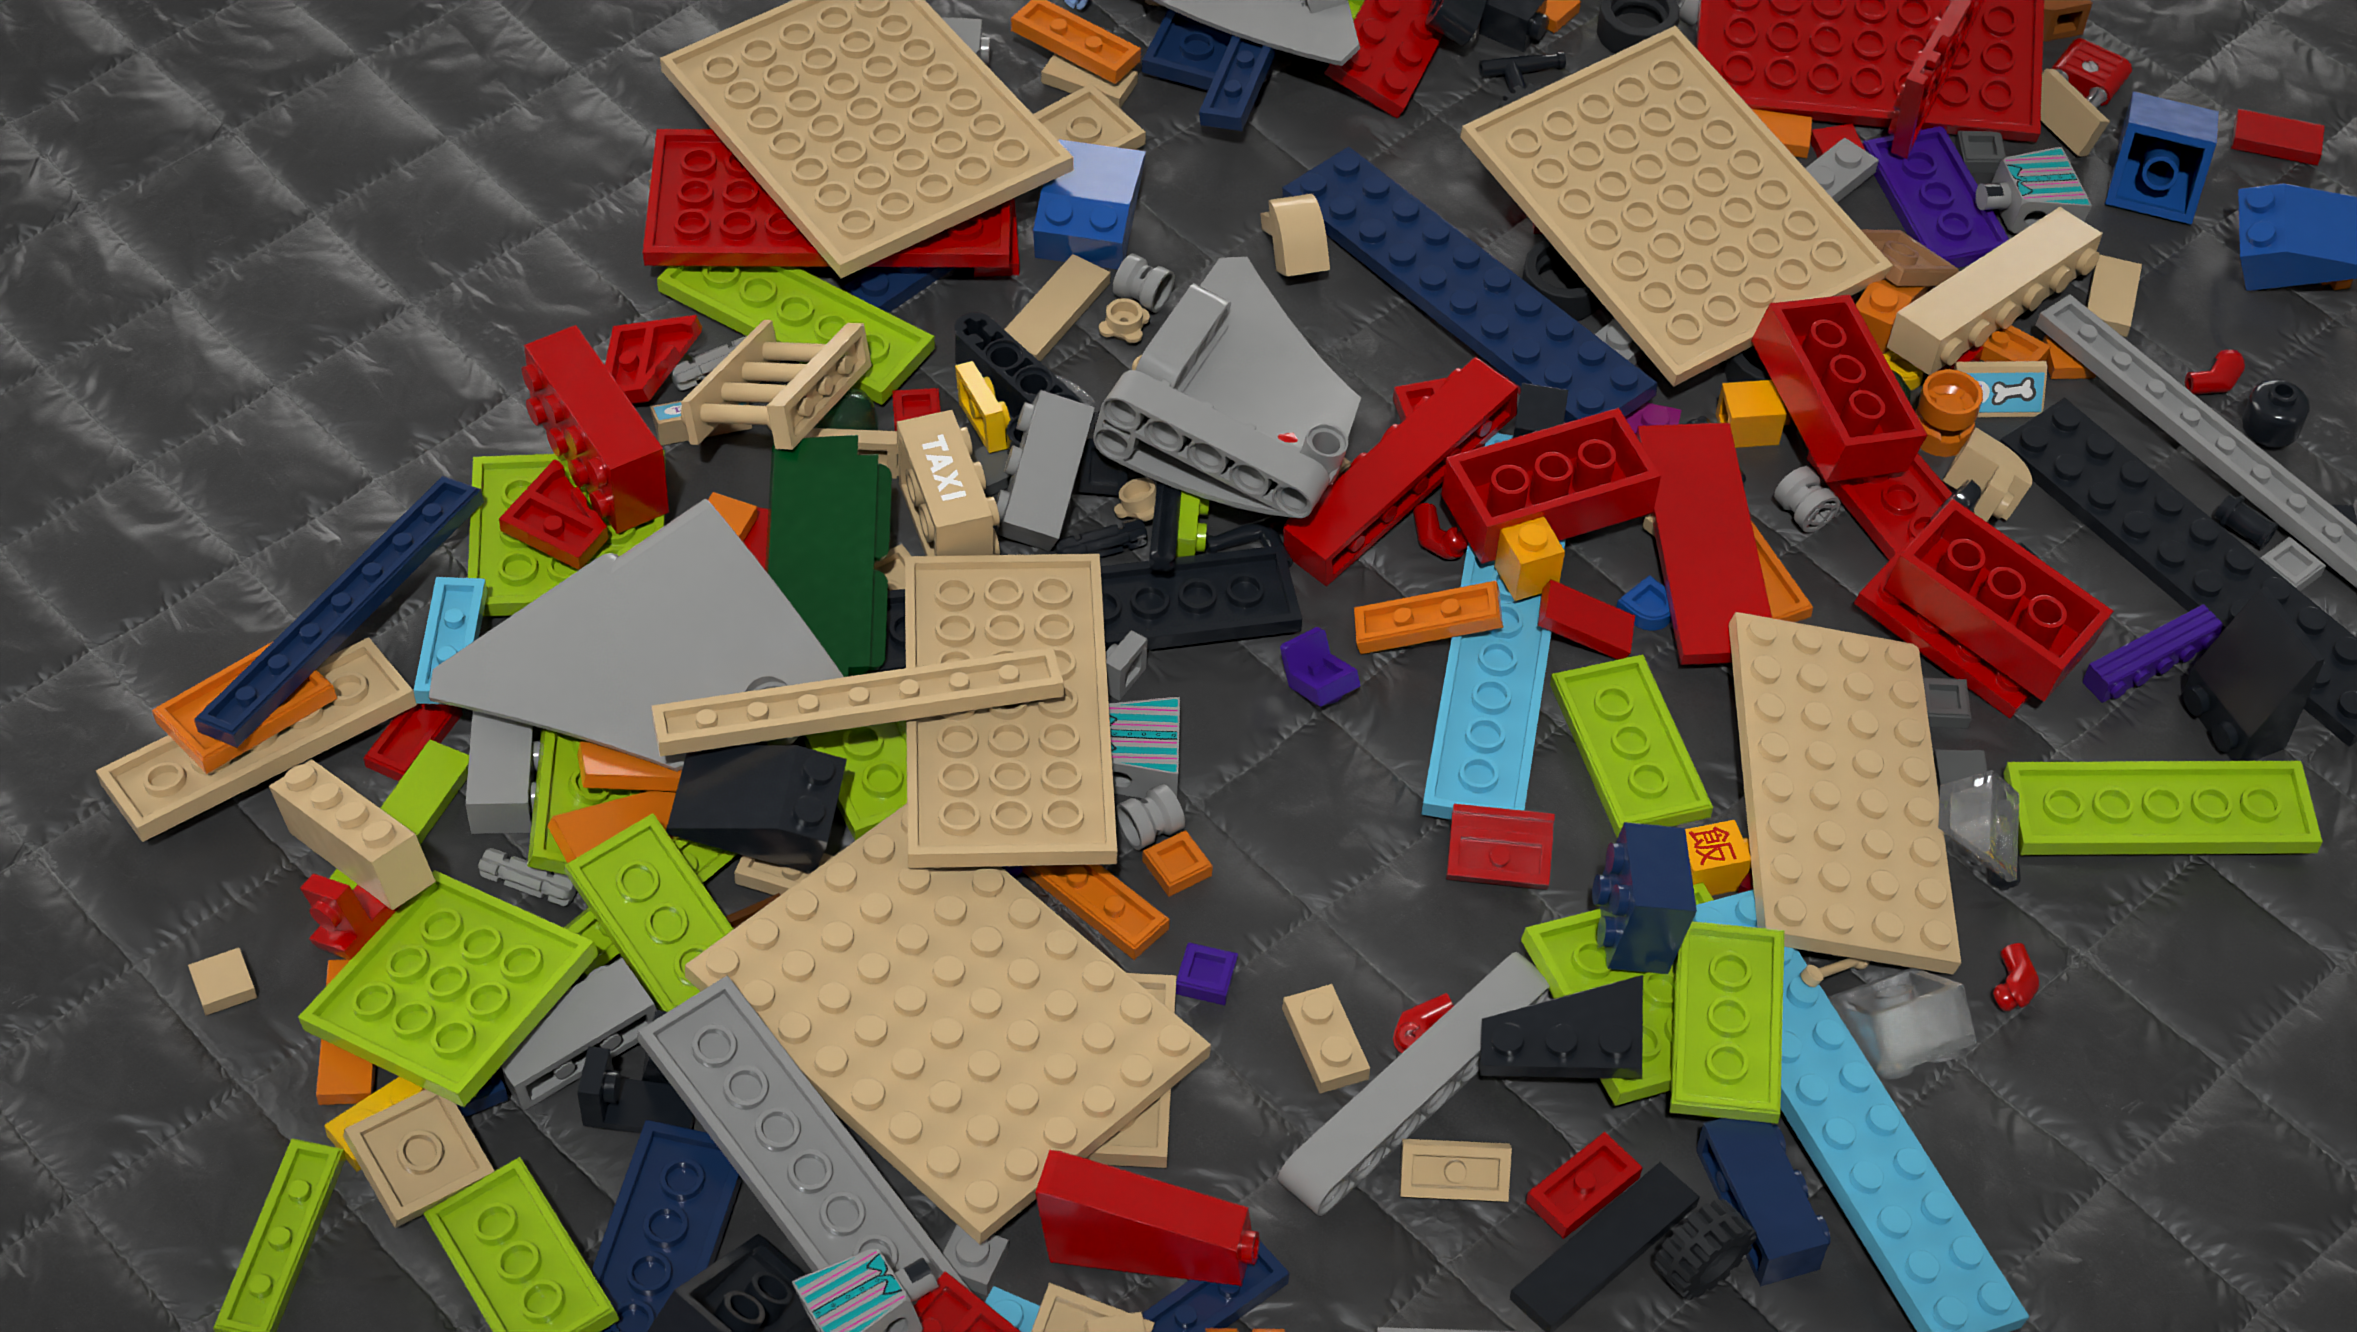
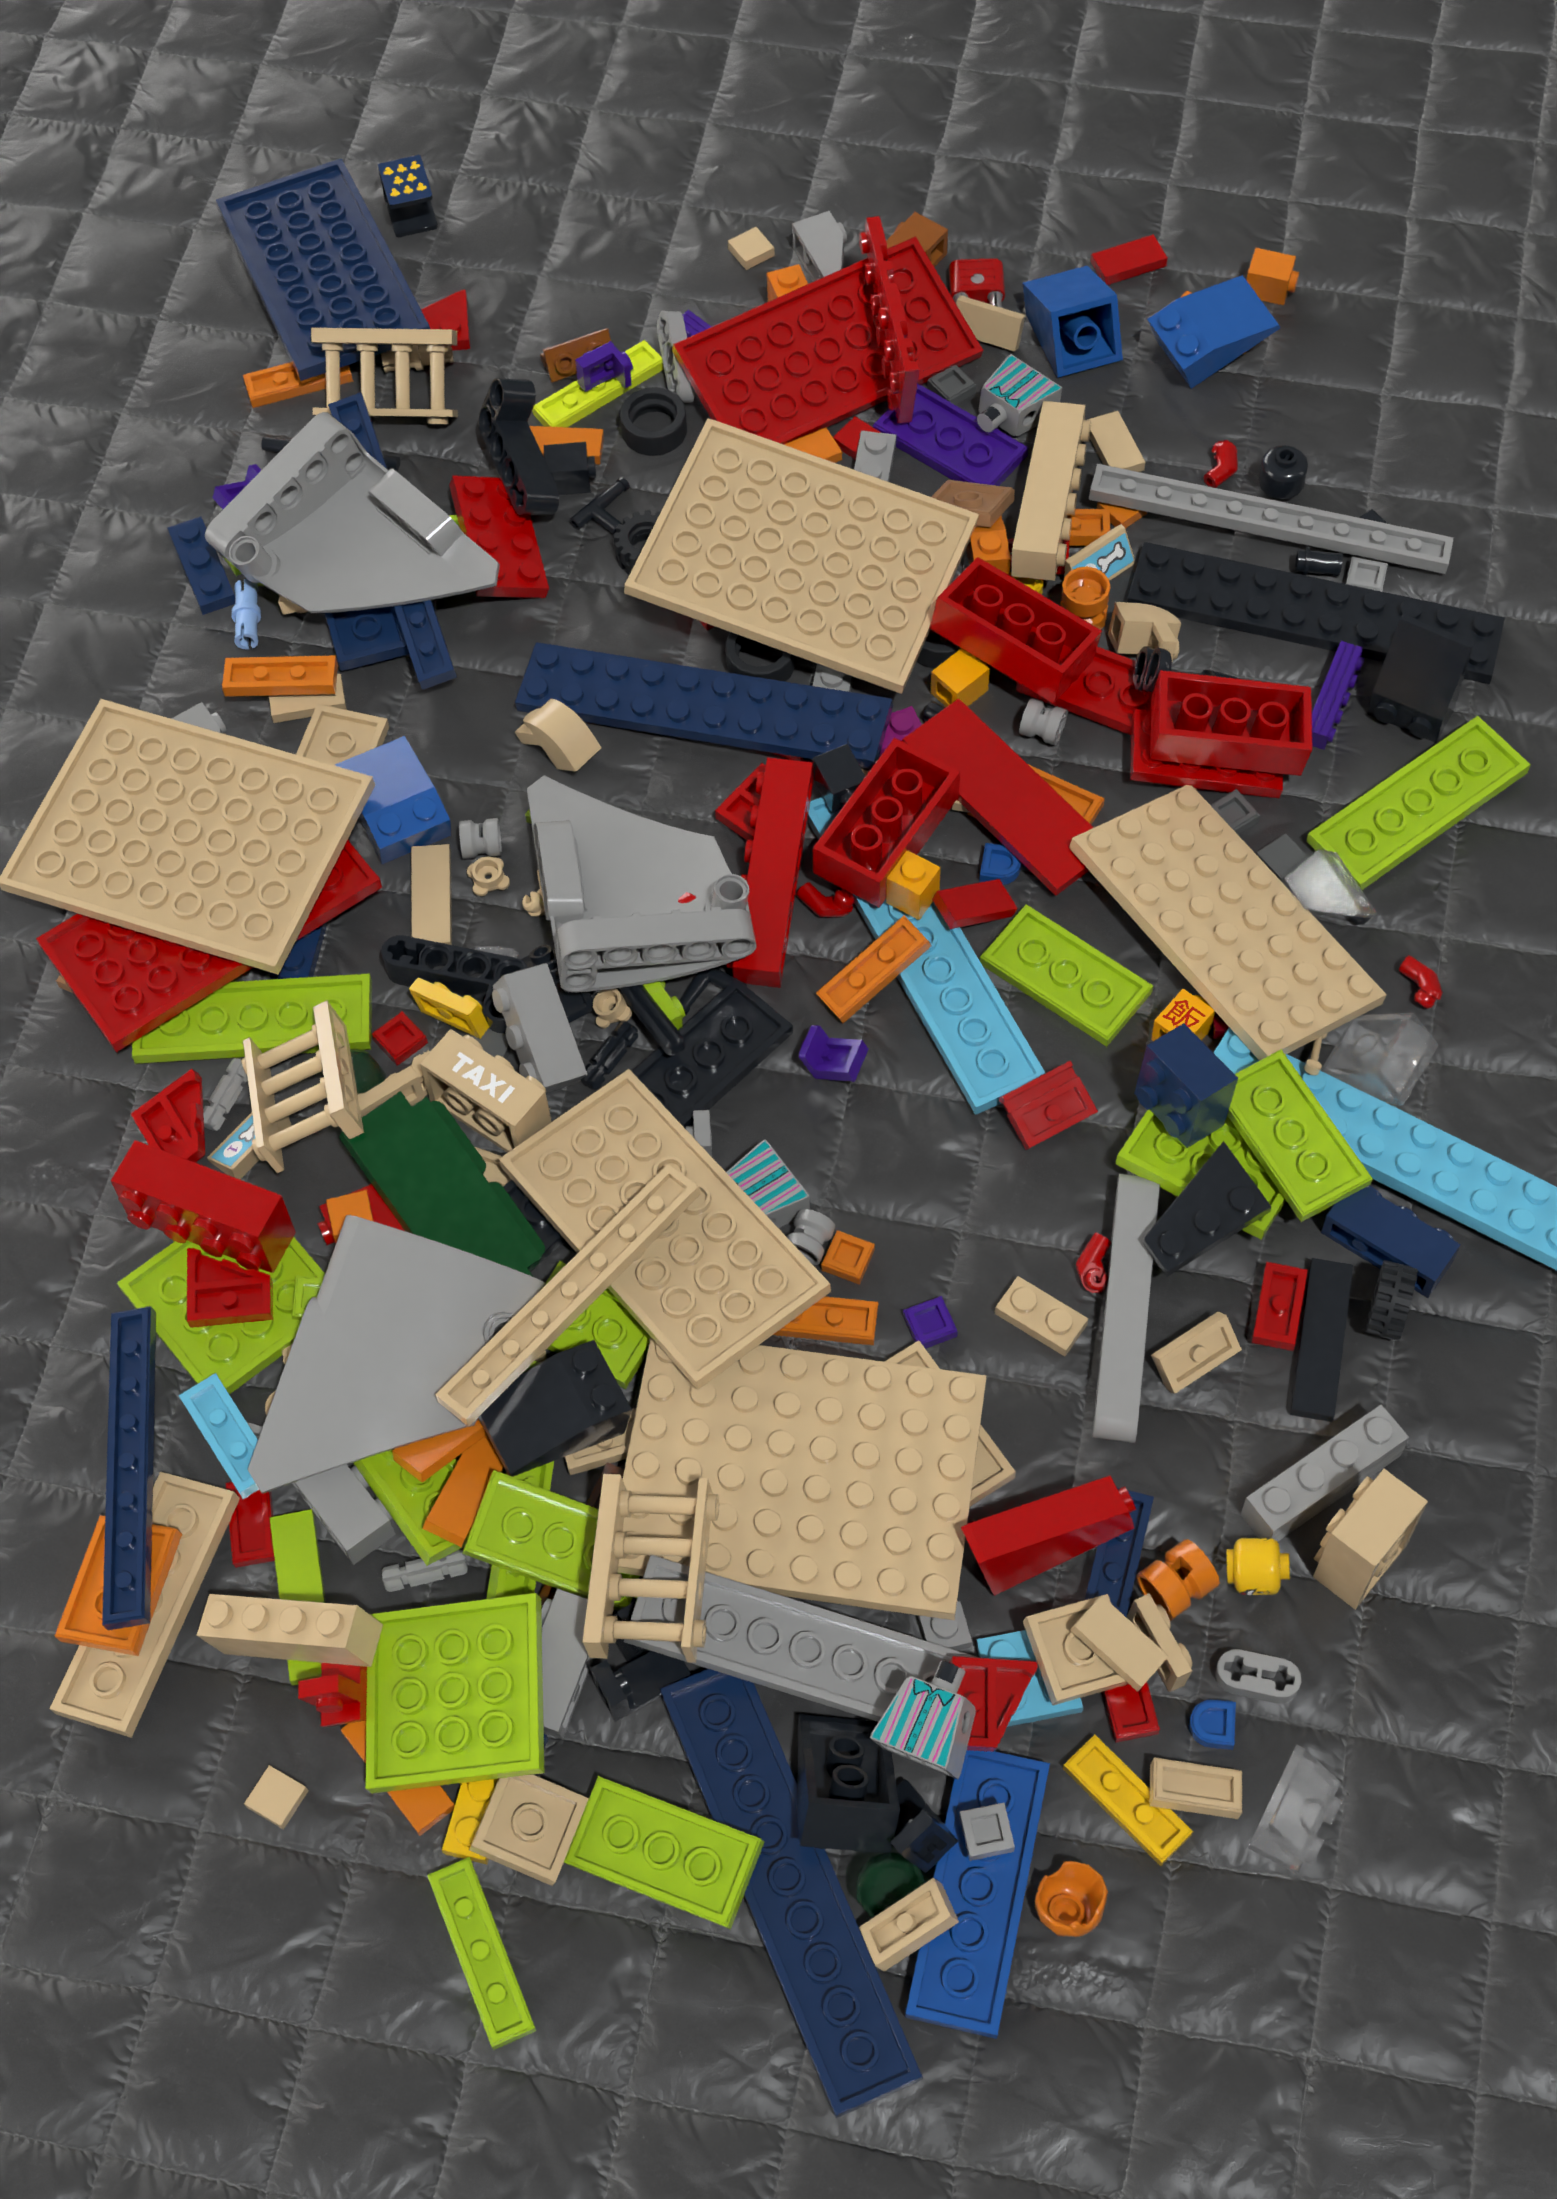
camera: 30 degrees left, 10 degrees up
(697, 940) = (614, 1544): none -> tan fence

